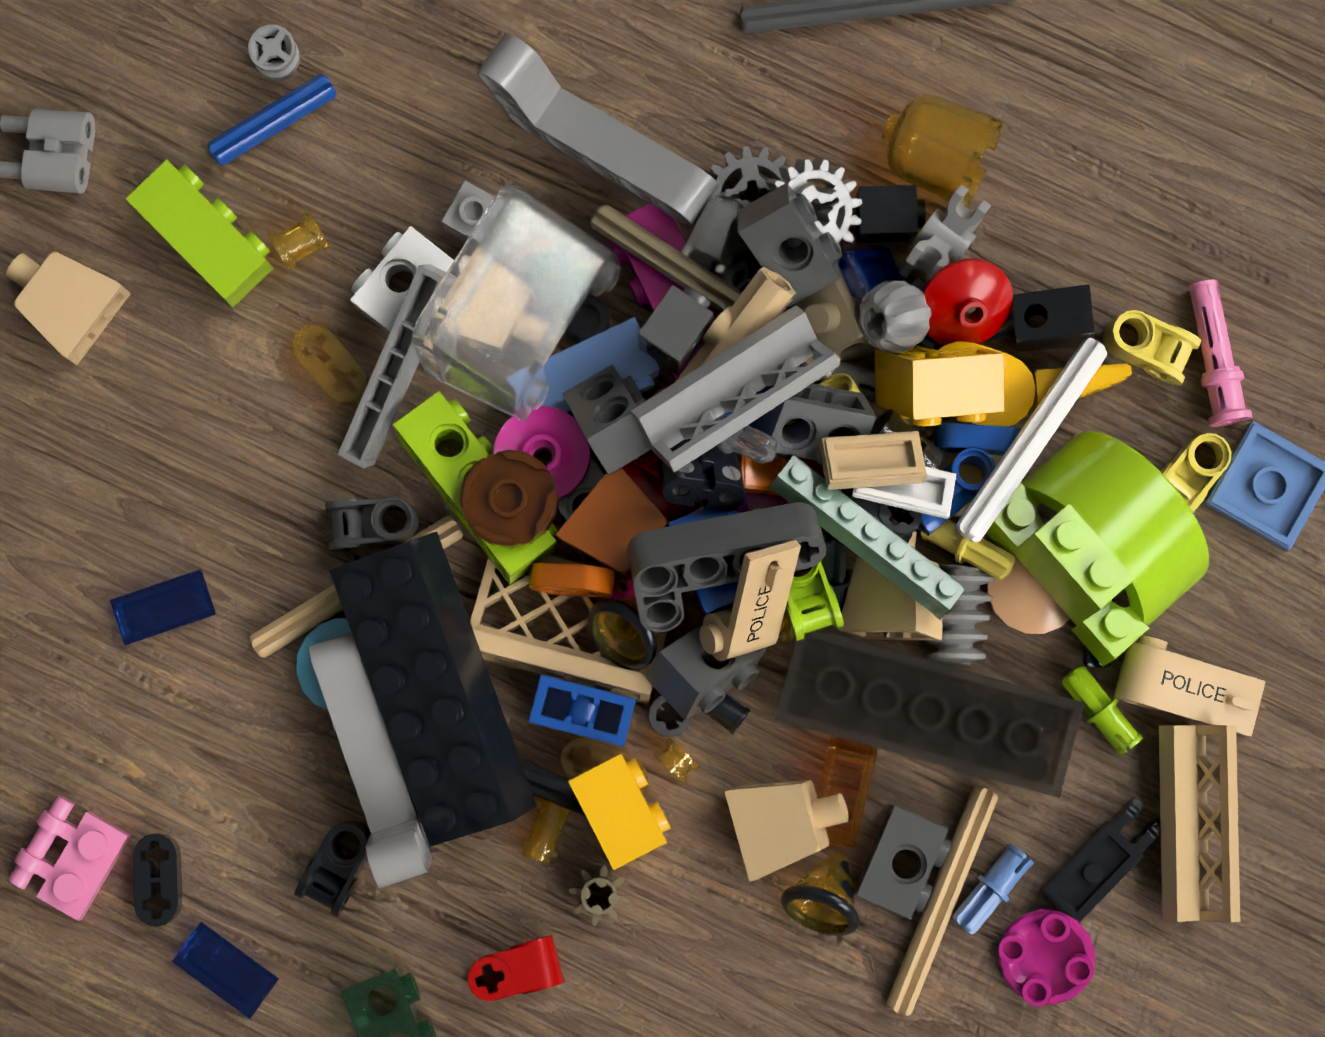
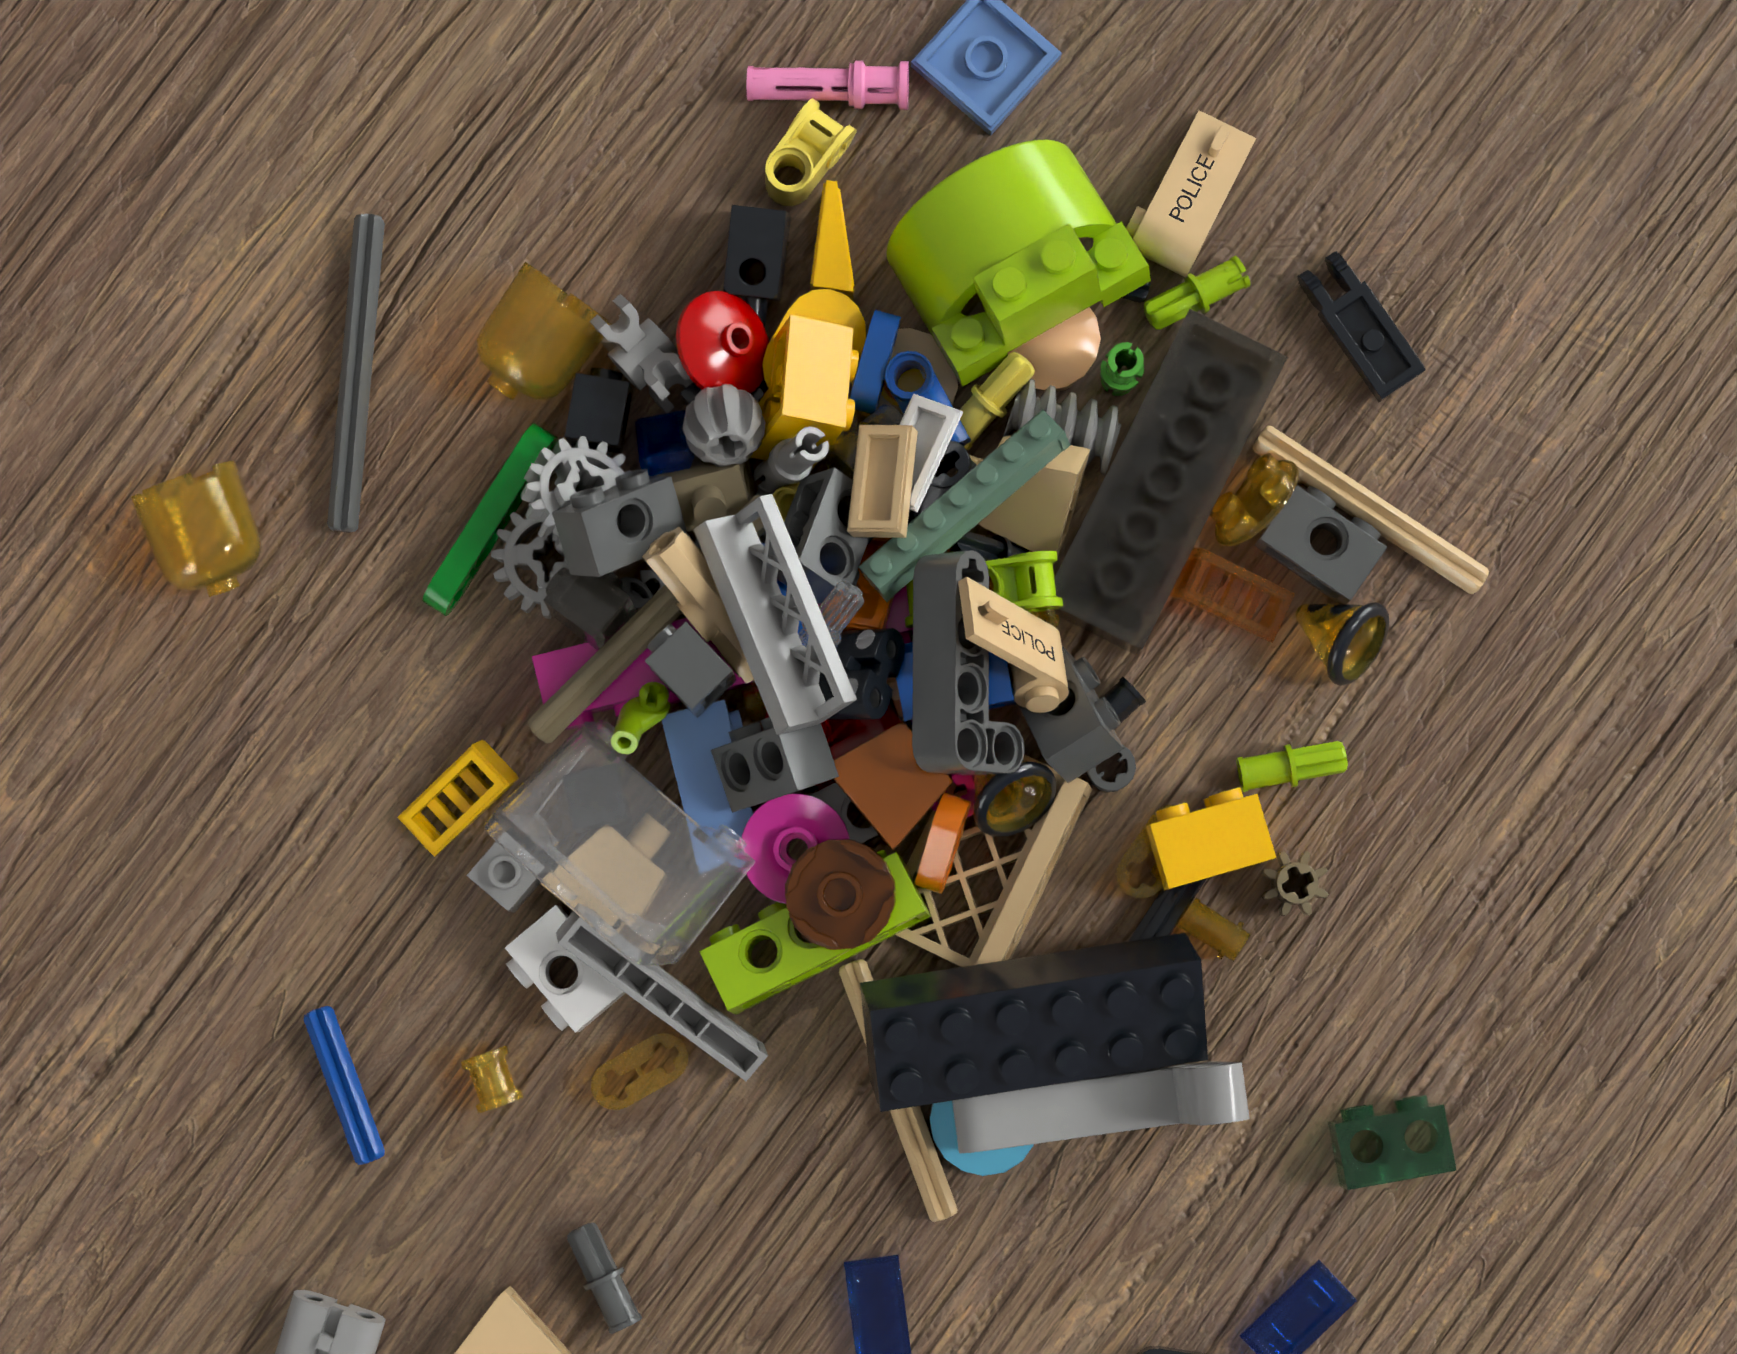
camera: 75 degrees left, 0 degrees up
(150, 368) = (603, 1277): none -> dark grey axle
(201, 231) = (458, 1189): lime brick -> none
(267, 44) = (253, 1067): light grey wheel -> none
(332, 874) = (1214, 1176): black piece -> none
(360, 523) = (830, 1064): dark grey piece -> none
(525, 968) = (1357, 980): red piece -> none
(561, 175) = (490, 764): none -> yellow slope
(582, 710) = (1089, 860): blue brick -> none
(589, 320) = (654, 766): black tile -> none
(590, 136) = (396, 774): light grey beam -> none
(627, 296) = (639, 716): none -> lime arm
(676, 760) = (1163, 769): clear yellow bush -> none
(703, 873) = (1291, 765): none -> lime axle
(759, 133) = (491, 514): none -> green beam
(781, 823) = (1255, 666): tan torso -> none
(876, 381) = (791, 460): none -> light grey pin
(926, 797) = (1256, 501): none -> clear yellow dish
(992, 889) = (1369, 452): medium blue axle -> none
(1029, 652) = (1121, 356): none -> bright green pin
(1031, 440) = (889, 304): white axle -> none
(1046, 957) = (1453, 409): dark pink dish -> none
(1190, 822) = (1337, 223): tan fence -> none
(1191, 479) = (963, 143): light yellow piece -> none

